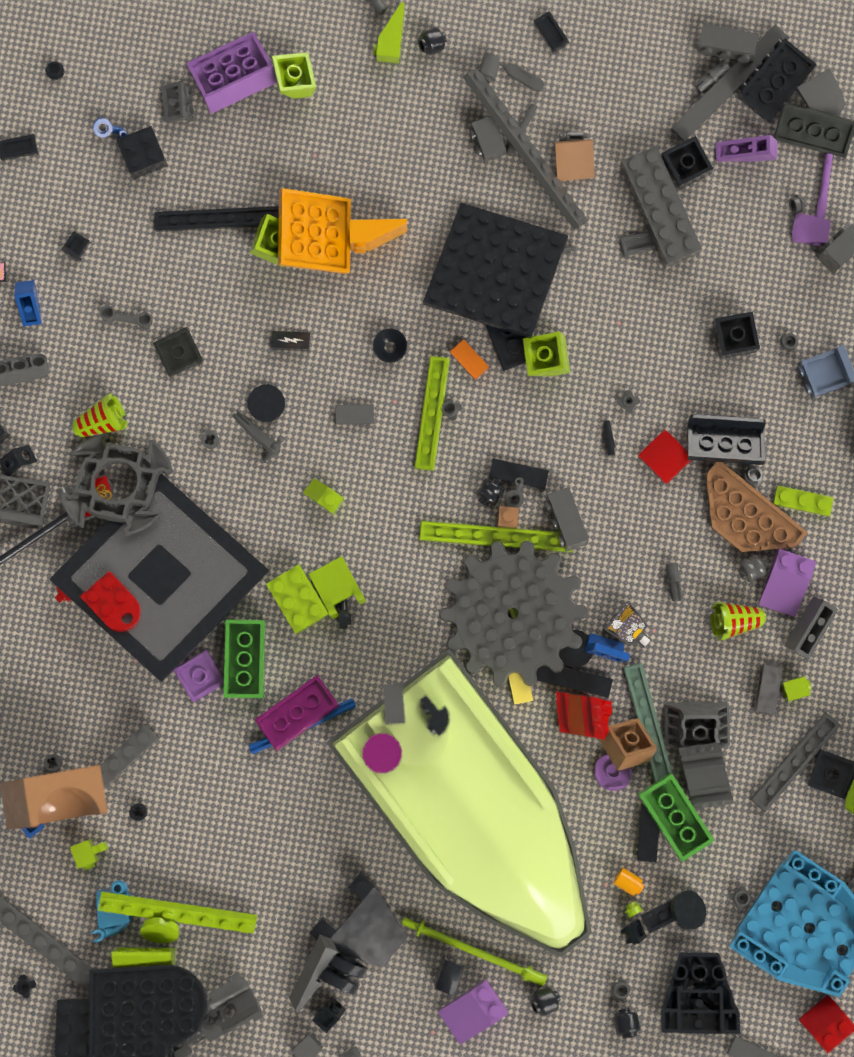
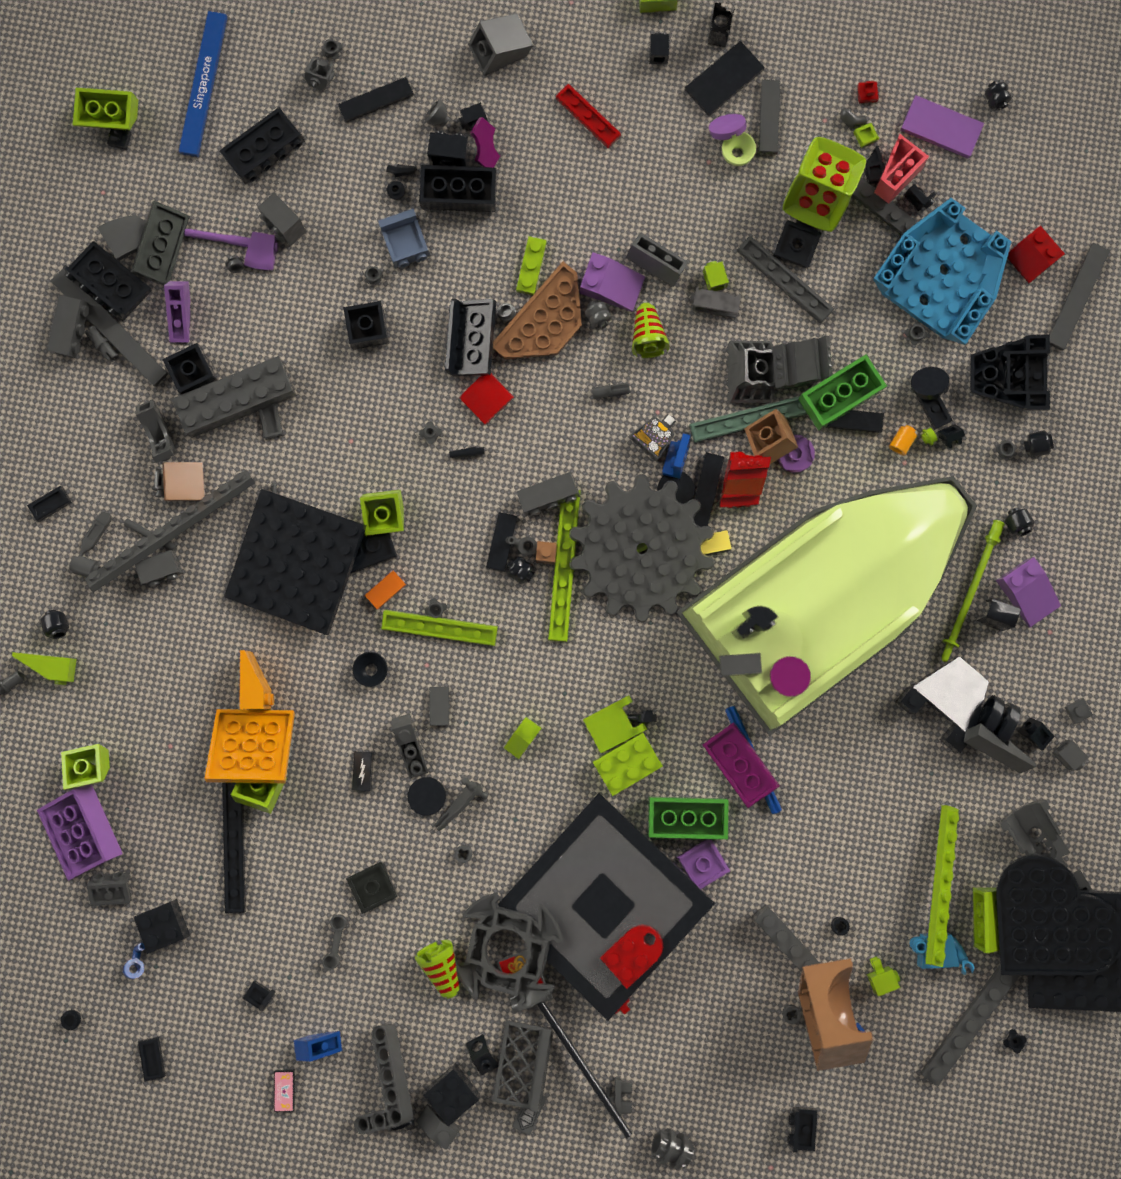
camera: 90 degrees left, 0 degrees up
(159, 931) = (959, 904): lime tile -> none
(315, 385) = (409, 745): none -> dark grey slope
(624, 133) = (156, 430): none -> dark grey arch

